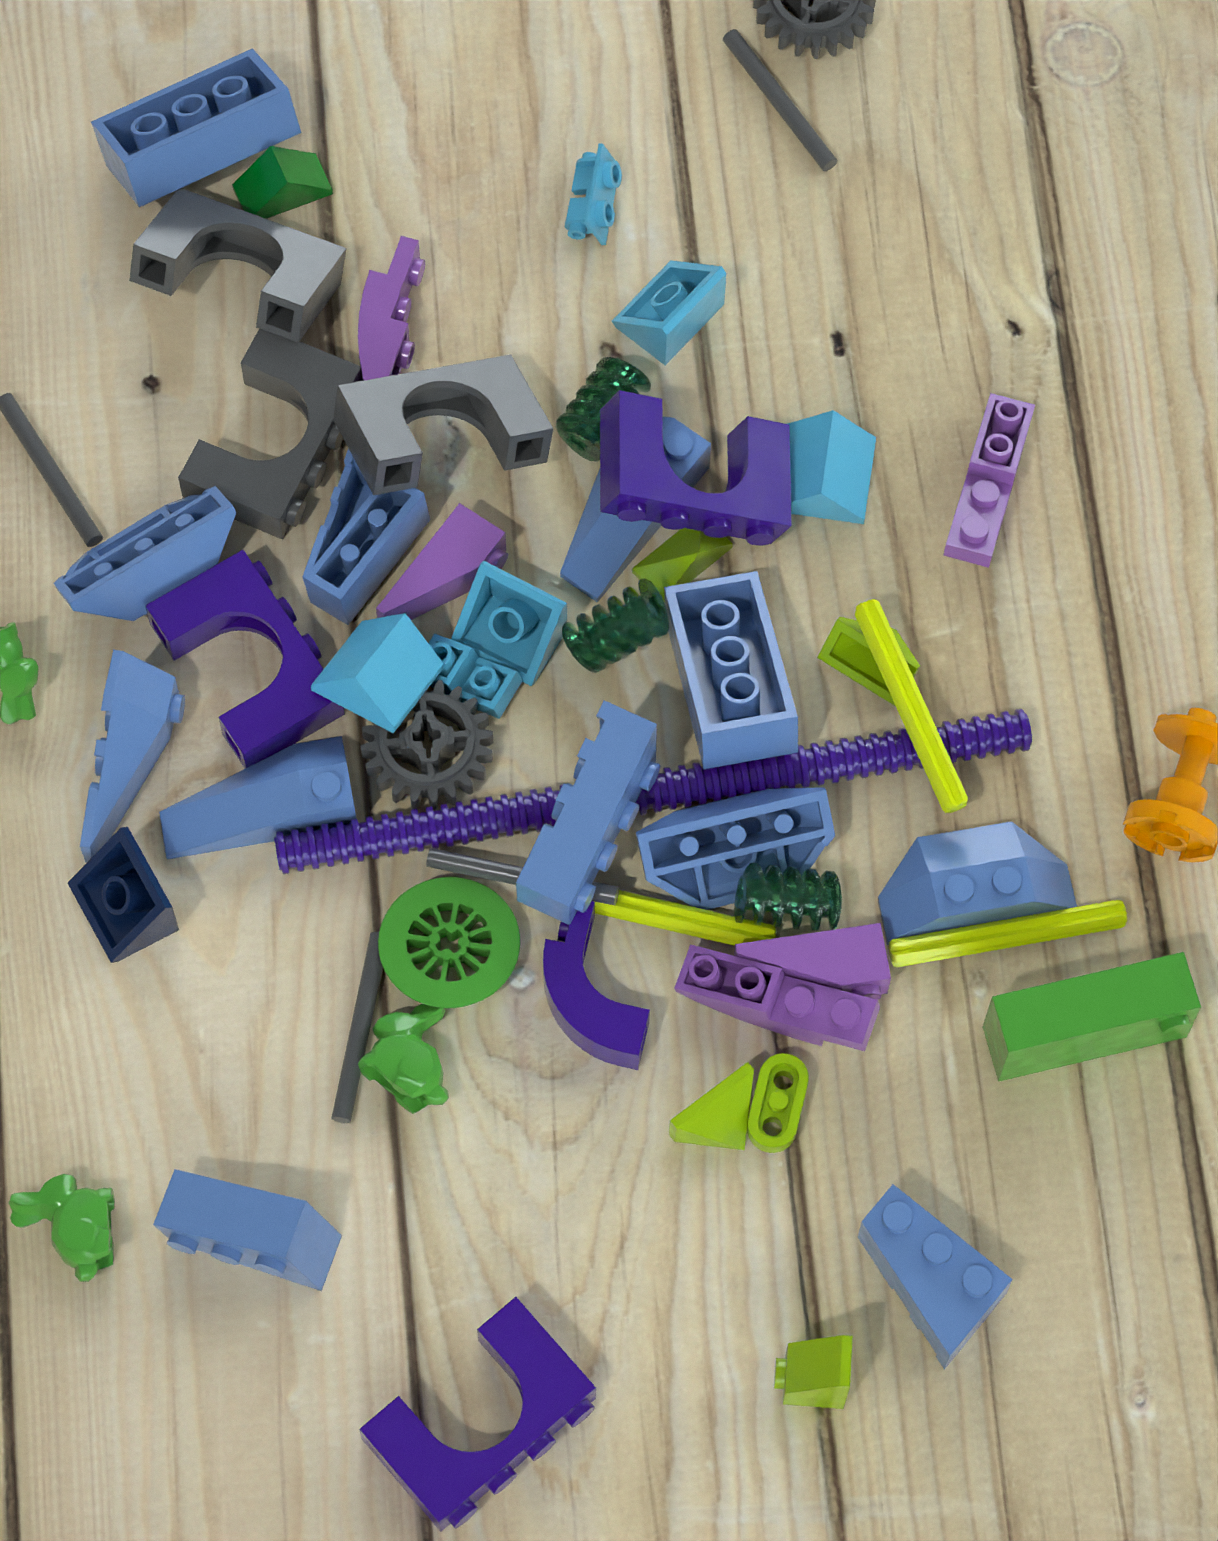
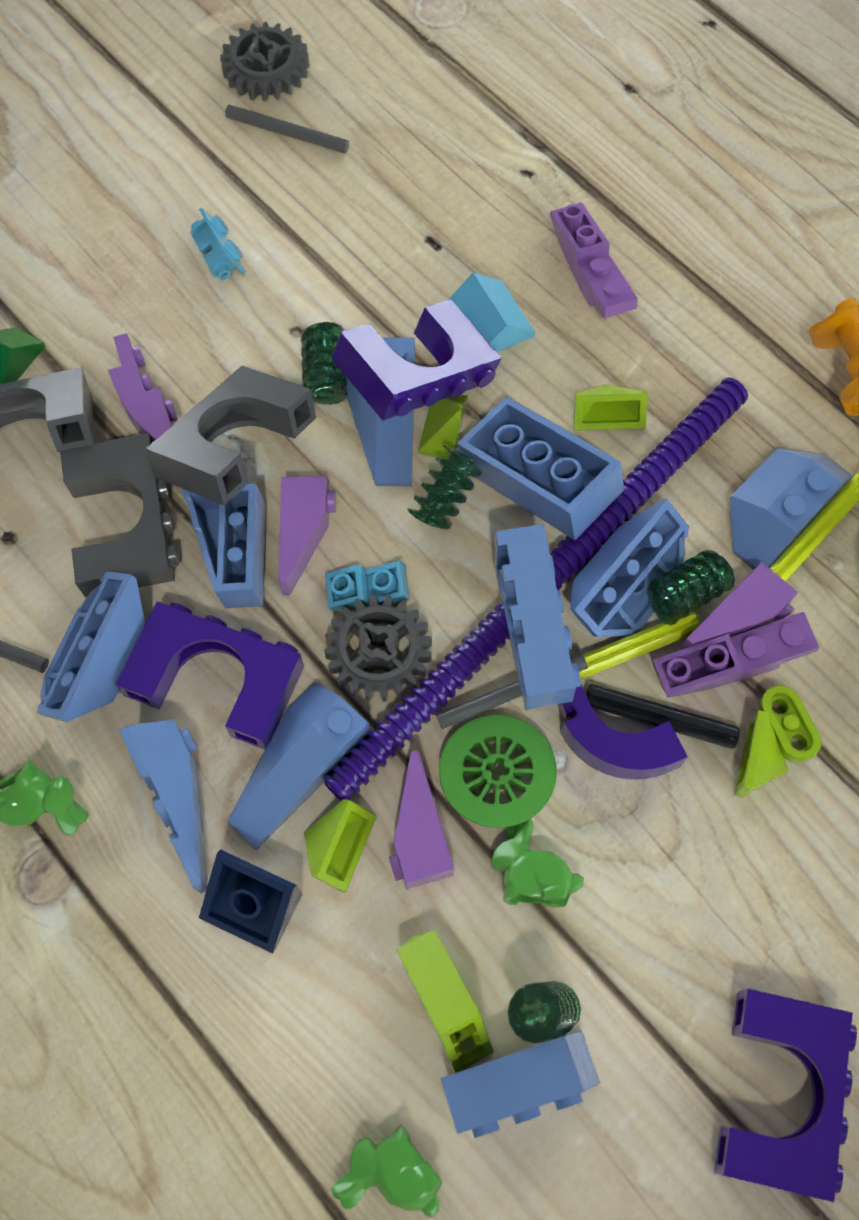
camera: 35 degrees left, 0 degrees up
(232, 1108) = (445, 1000): none -> lime slope
(246, 905) = (337, 843): none -> lime slope
(311, 1173) = (543, 1011): none -> clear green piece
(326, 947) = (419, 838): none -> medium lavender slope
(358, 1032) = (482, 875): dark grey bar -> none
(380, 671) = (313, 619): medium azure slope -> none
(511, 622) = (371, 531): medium azure slope -> none
(663, 1013) = (657, 714): none -> black axle
(673, 307) = (318, 279): medium azure slope -> none
(911, 706) = (668, 416): neon yellow axle -> none

